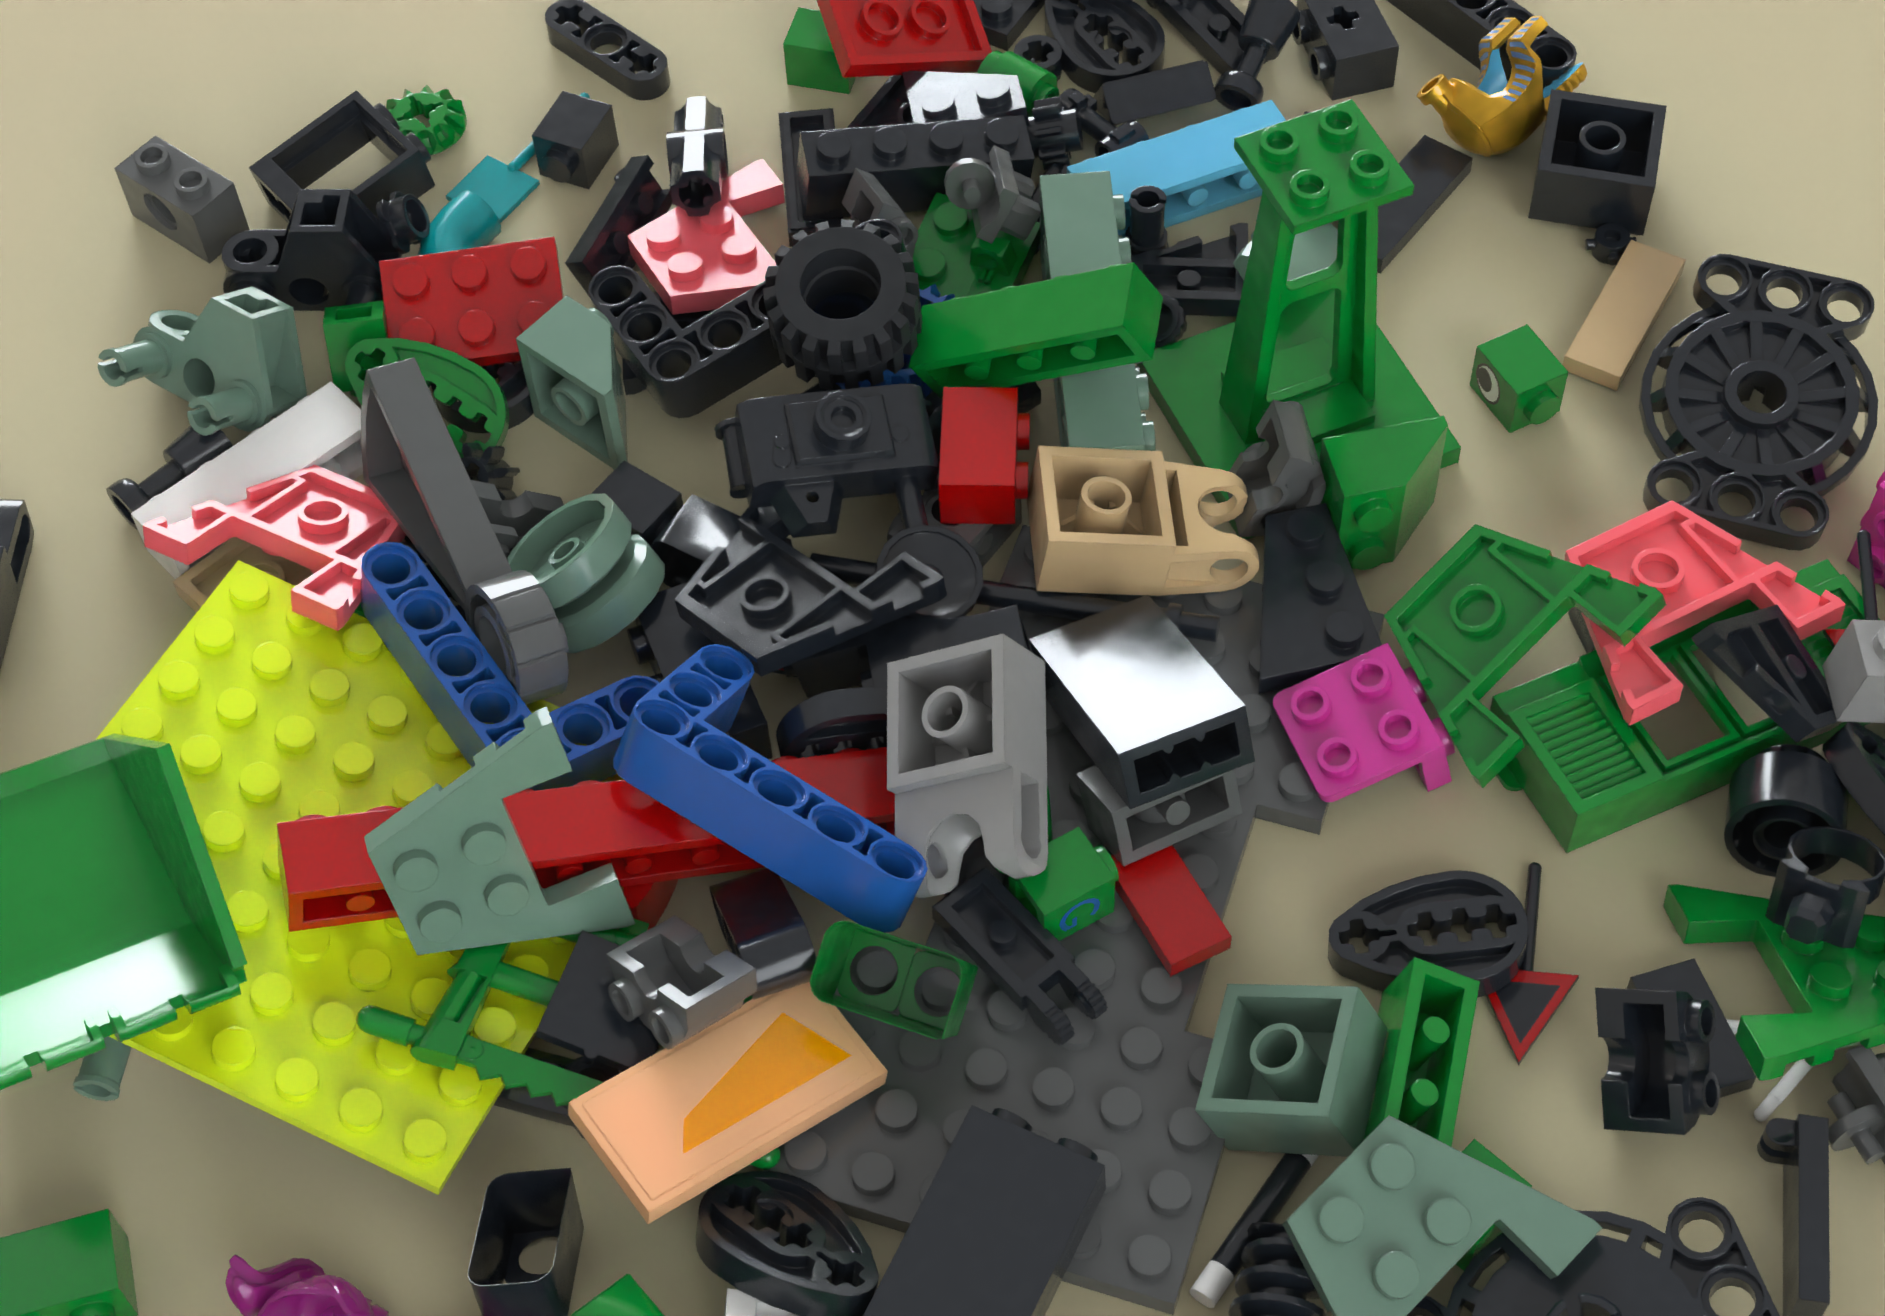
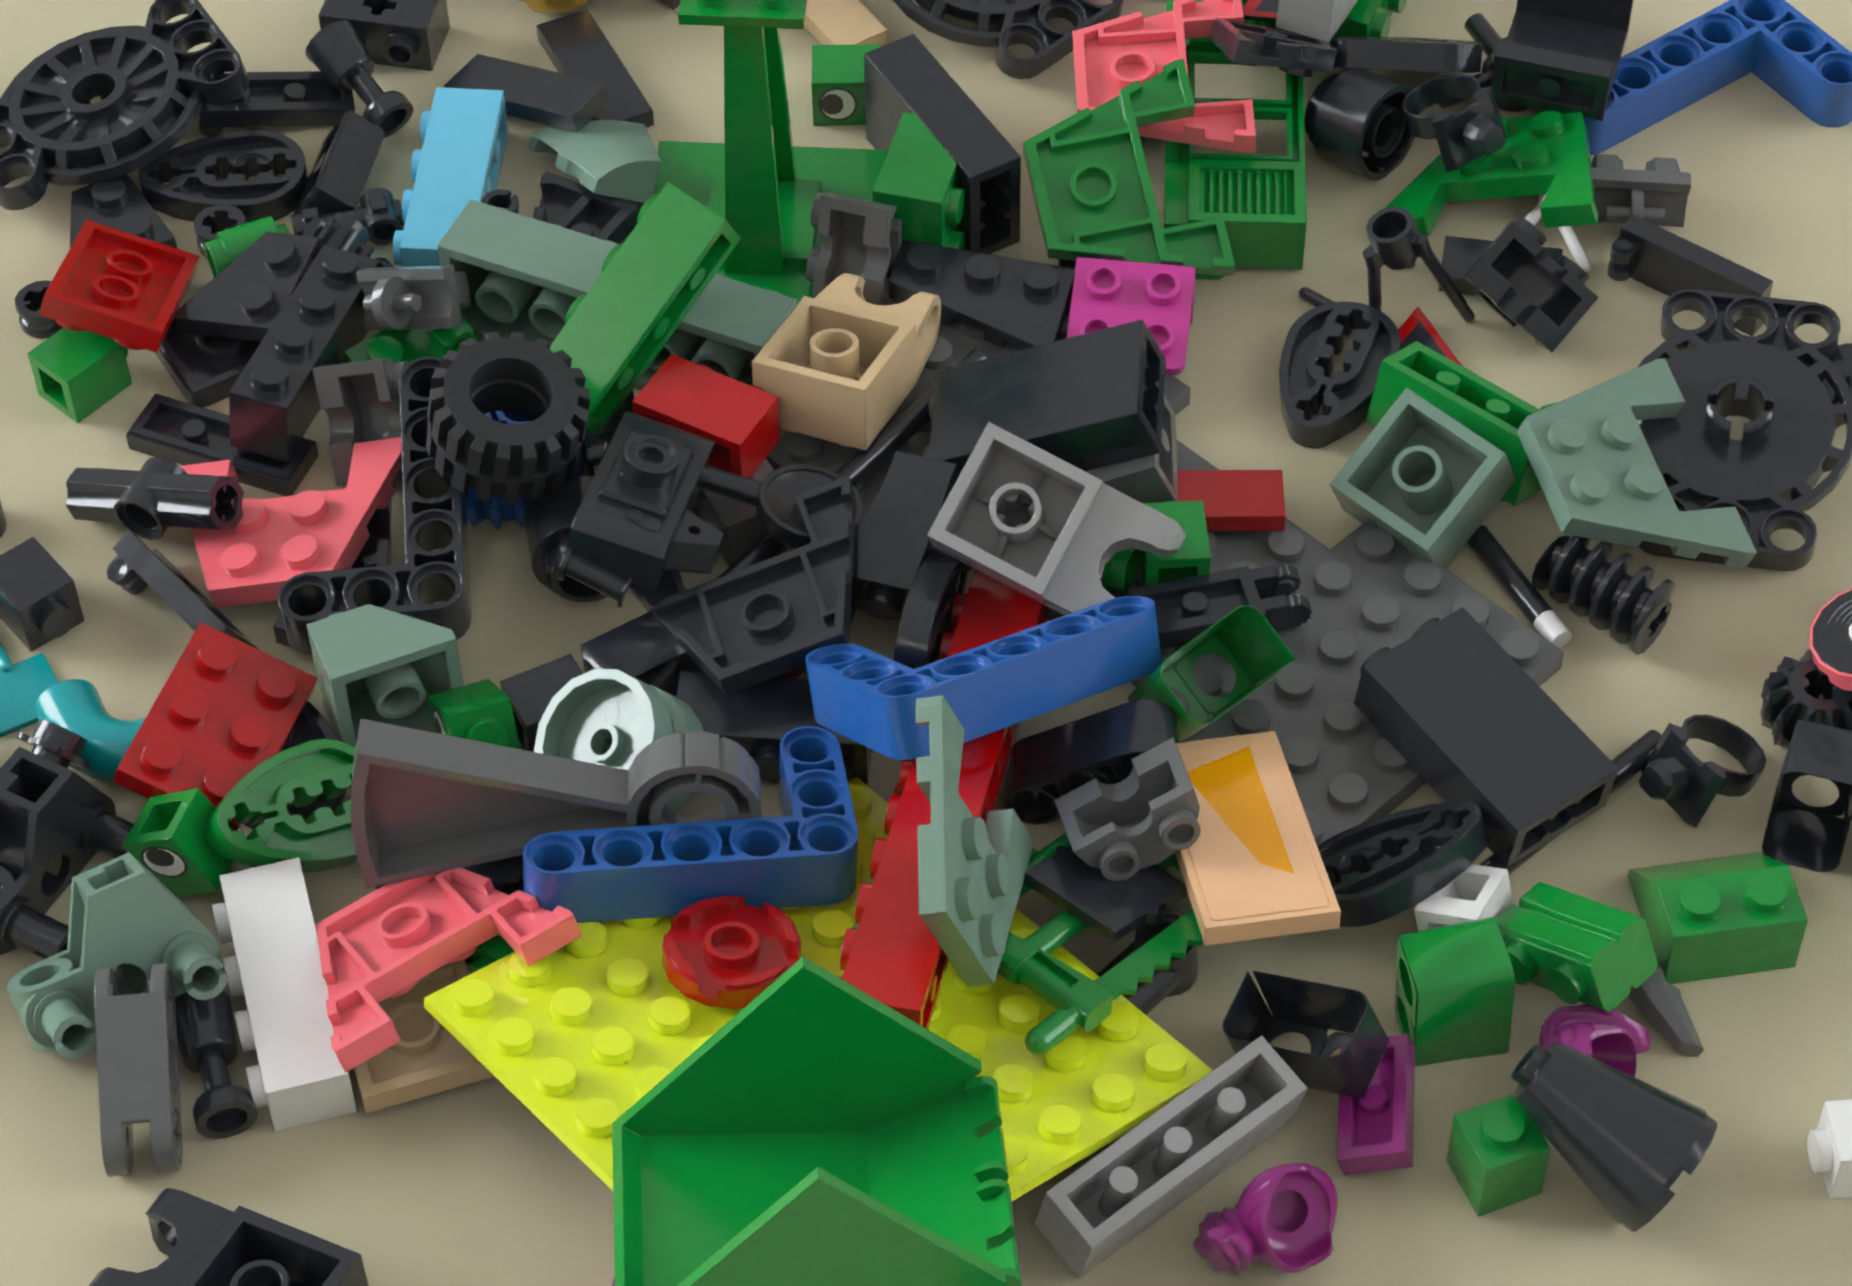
camera: 65 degrees left, 5 degrees down
(123, 426) = (138, 1070): none -> dark grey piece
(340, 1195) = (1169, 1156): none -> light grey brick
(382, 747) = (728, 950): none -> red tile
(571, 464) = (475, 713): none -> green brick
(1469, 468) = (911, 80): none -> black brick
(1593, 901) = (1397, 246): none -> black plant

